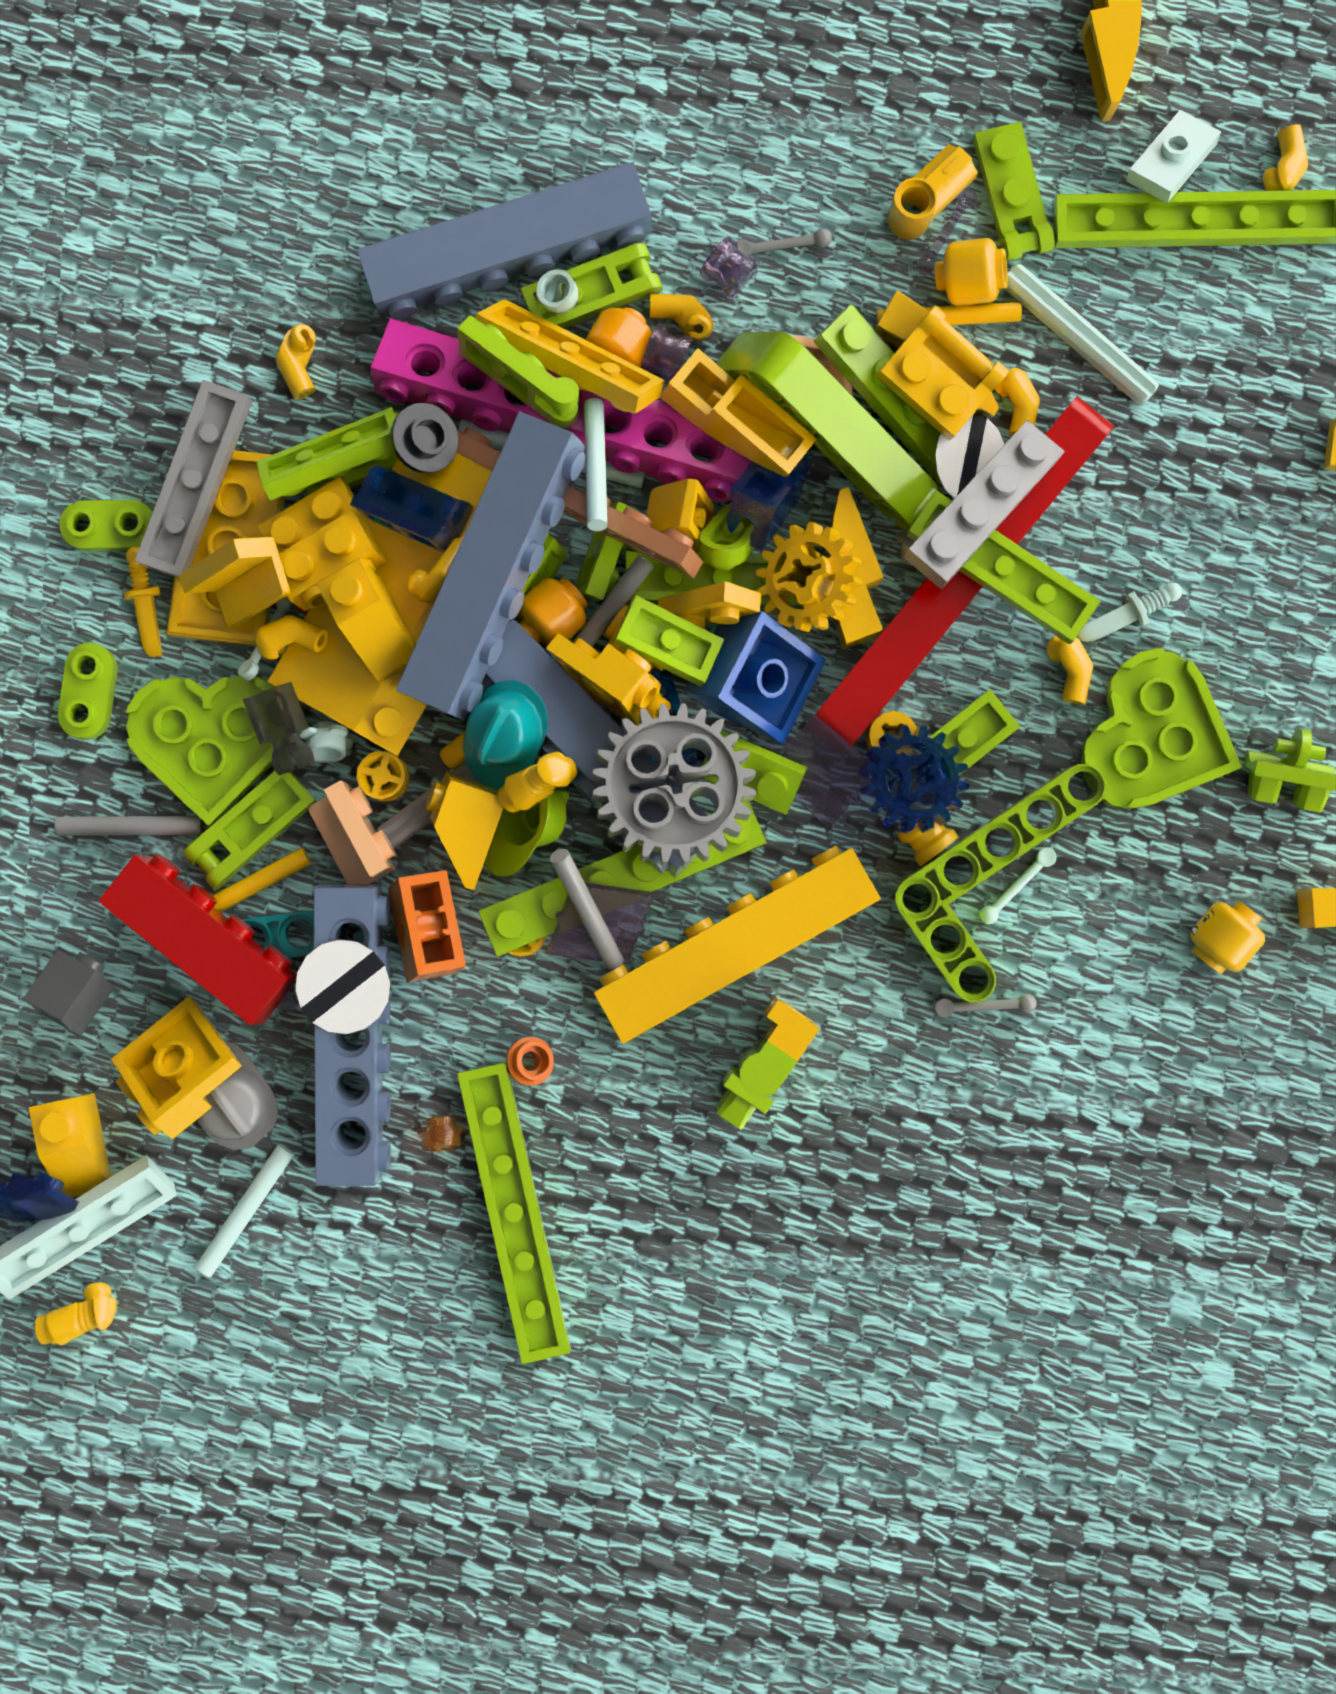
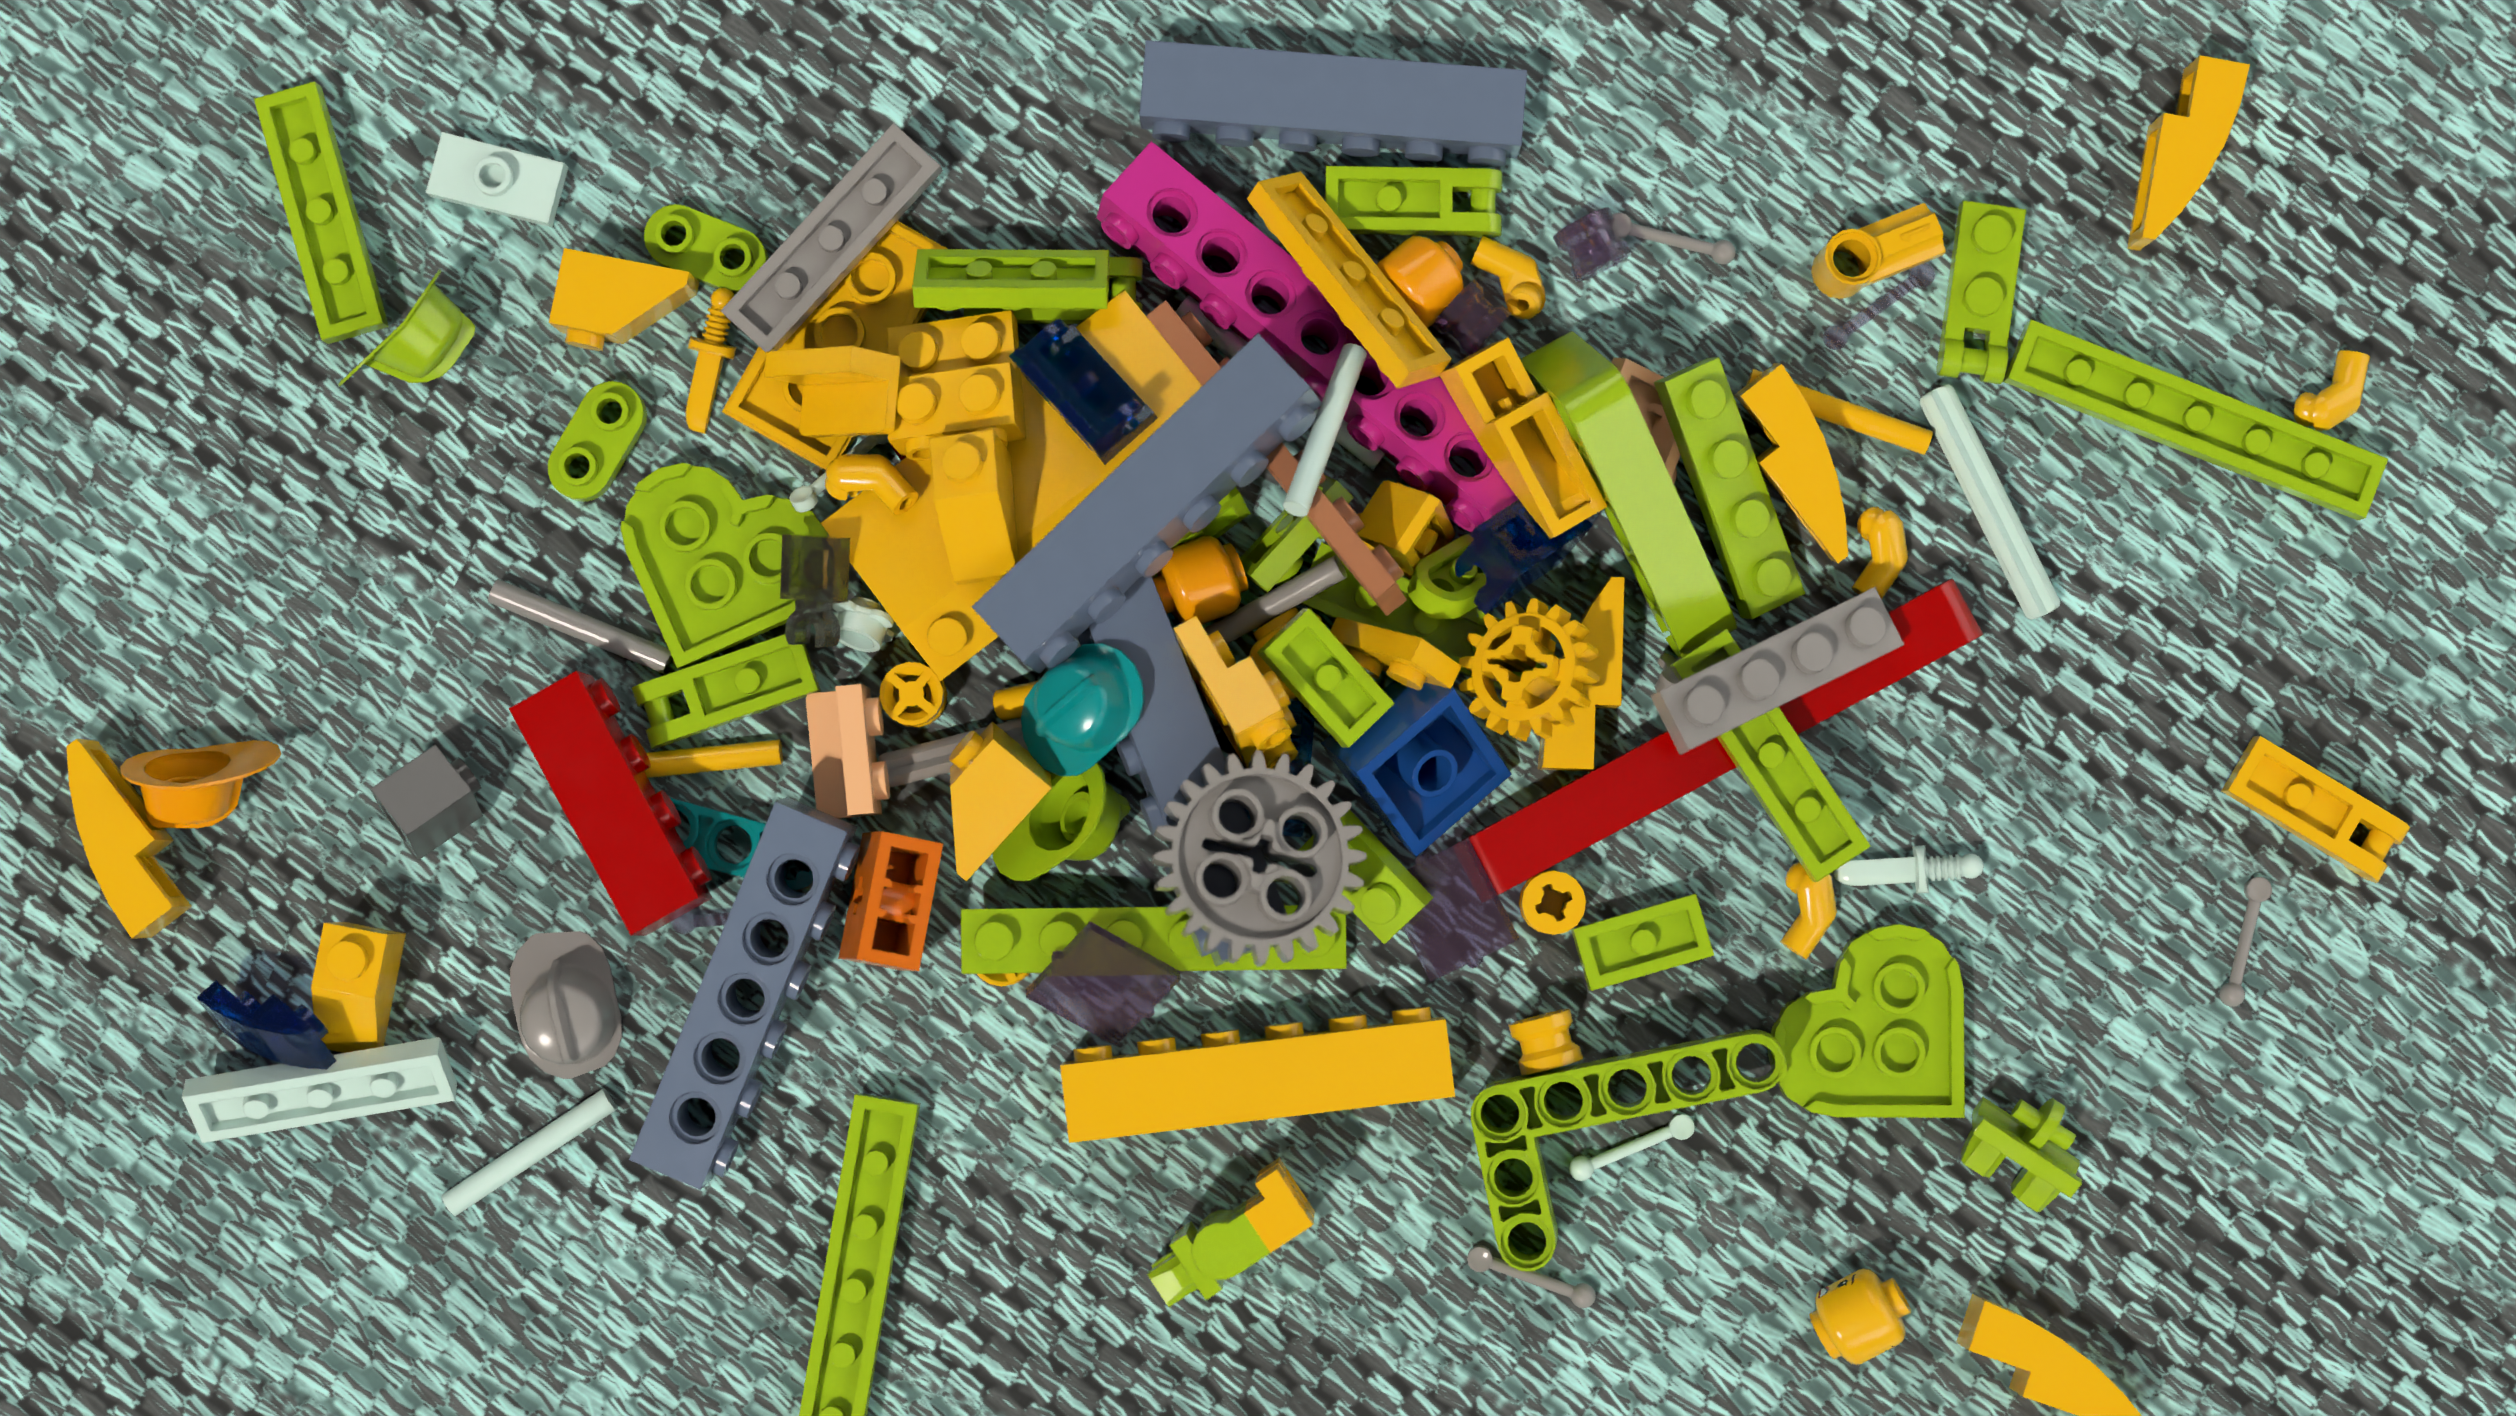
camera: 20 degrees right, 0 degrees up
(57, 584) = (613, 297): none -> yellow slope
(77, 1318) = (272, 1199): yellow arm -> none
(175, 1068) = (517, 948): yellow plate -> none
(293, 359) = (1014, 136): yellow arm -> none
(342, 986) = (760, 934): white sticker -> none
(424, 438) = (1132, 309): piece -> none
(427, 585) = (1065, 493): yellow arm -> none
(441, 1134) = (804, 1159): clear orange plate -> none
(519, 372) = (1279, 278): lime plate -> none
(536, 782) = (1095, 785): yellow arm -> none
(543, 1061) = (965, 1120): orange plate -> none
(550, 291) = (1359, 187): light aqua hinge -> none
(586, 908) = (1093, 962): light grey bar -> none
(897, 769) = (1573, 988): clear blue gear -> none
(934, 387) = (1774, 497): yellow plate -> none
(966, 453) = (1787, 590): white sticker -> none
(972, 272) = (1886, 373): yellow head -> none
(1173, 156) = (2194, 331): light aqua plate -> none

